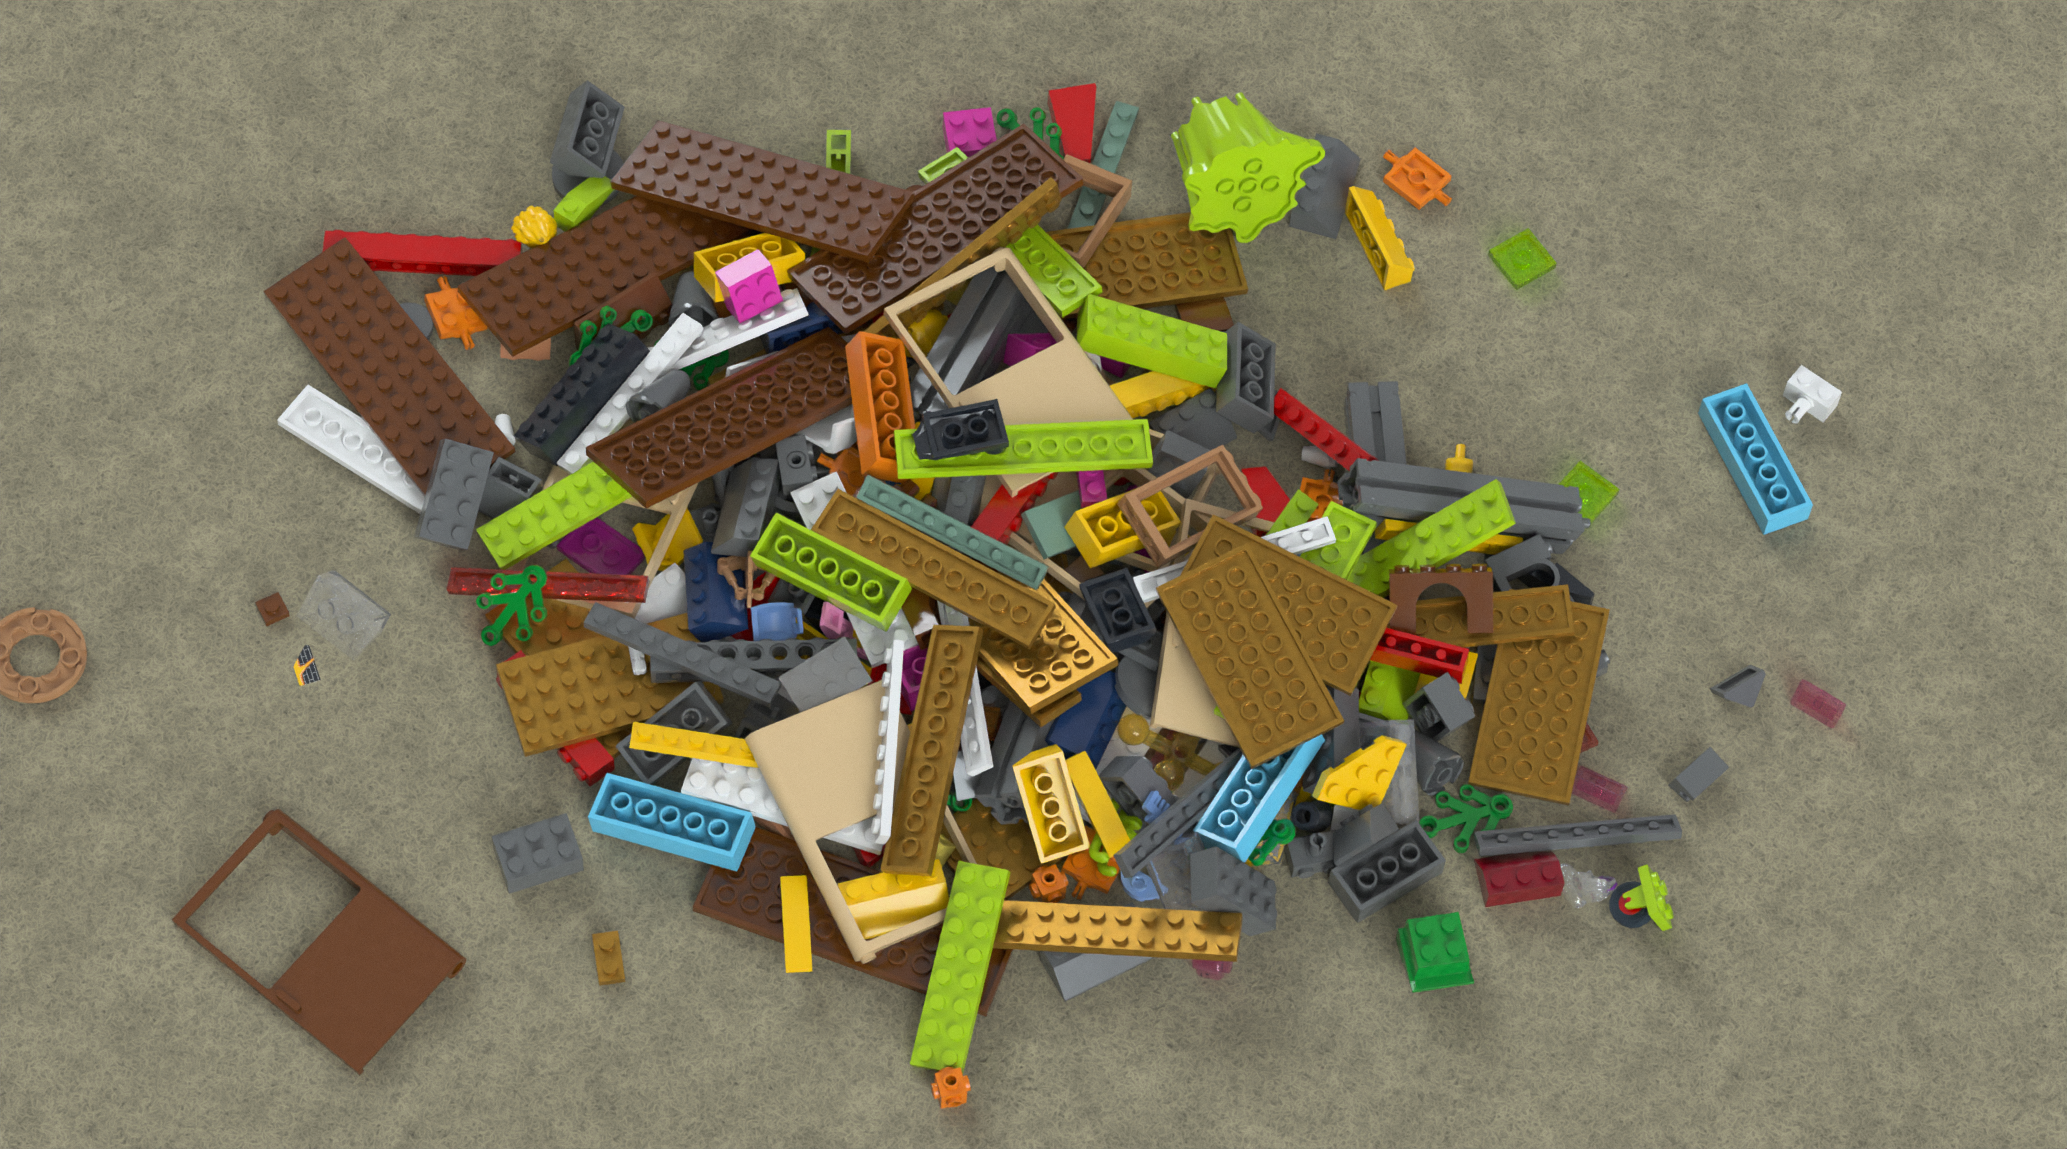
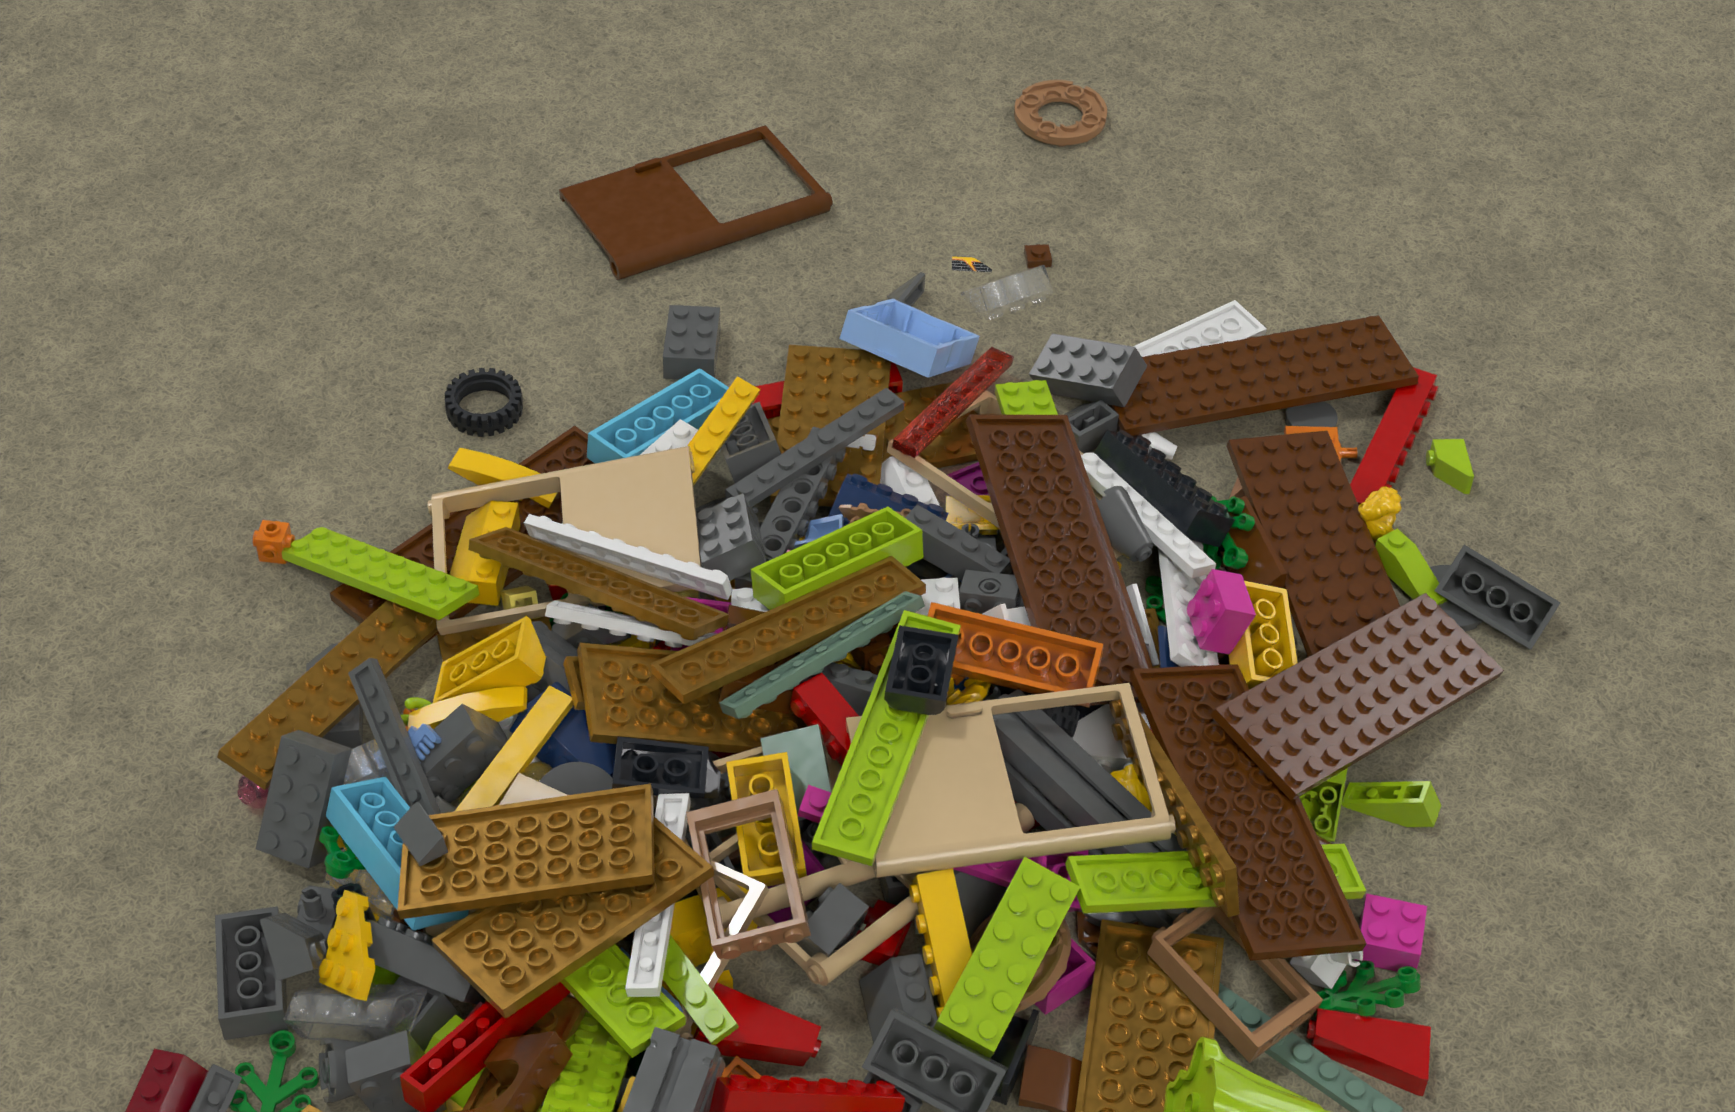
camera: 115 degrees right, 15 degrees down
(385, 700) = (910, 291): none -> dark grey slope
(427, 202) = (1451, 463): none -> lime slope
(471, 654) = (909, 337): none -> light blue tile
(516, 602) = (957, 381): green plant -> none
(608, 958) = (565, 366): pearl gold plate -> none
(700, 1029) = (483, 422): none -> black tyre
(1048, 884) = (424, 679): orange brick -> none
(1136, 743) = (519, 750): none -> yellow tile
(1271, 736) = (420, 835): none -> dark grey slope
(1434, 952) = (129, 975): green piece -> none

